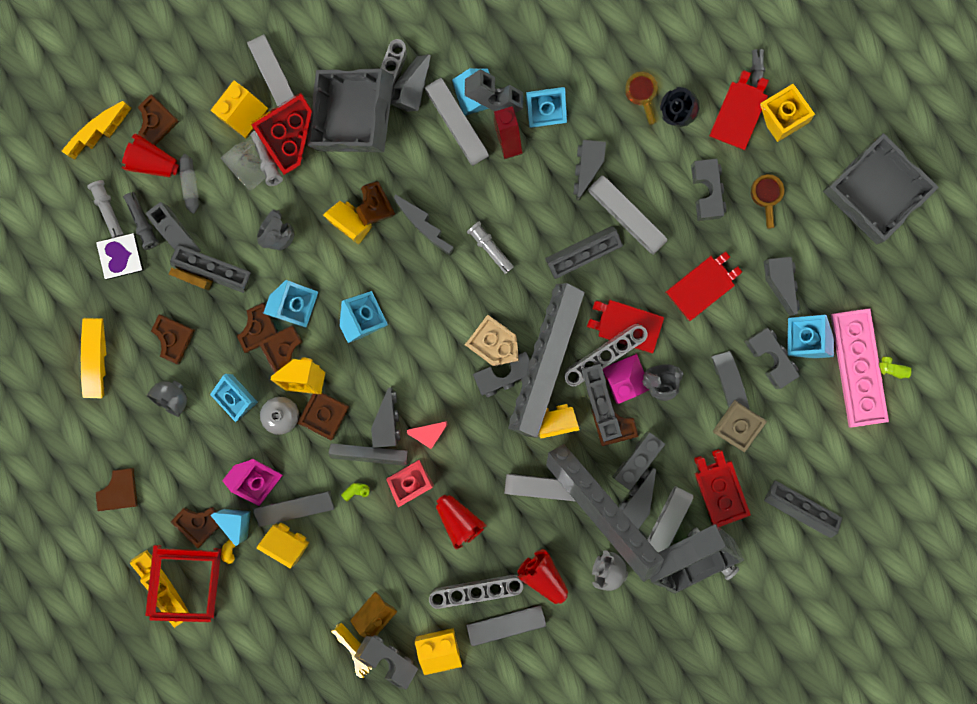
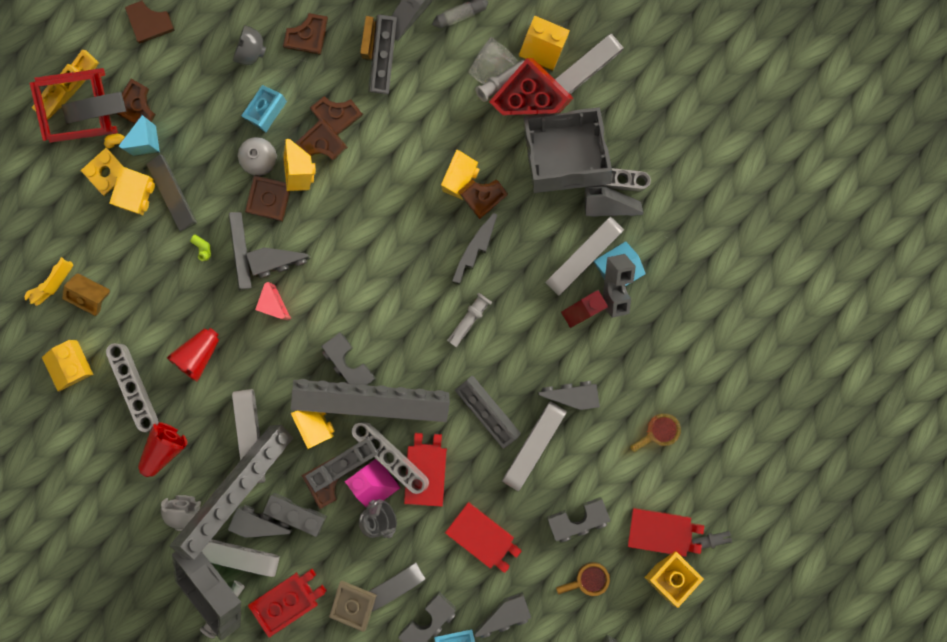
camera: 75 degrees right, 0 degrees up
(190, 564) = (93, 107): none -> dark grey slope
(249, 577) = (94, 169): none -> yellow piece
(251, 480) = (187, 145): dark pink slope -> none
(274, 233) = (430, 107): dark grey helmet -> none
(291, 303) = (366, 140): medium azure slope -> none
(361, 316) = (371, 210): medium azure slope -> none
(400, 669) = (40, 333): dark grey arch -> none
(409, 483) = (220, 297): coral slope -> none
(494, 342) = (376, 346): tan tile -> none
(506, 625) = (106, 424): dark grey slope -> none
(546, 107) = (620, 340): medium azure slope -> none
(679, 107) = (652, 472): black cylinder -> none

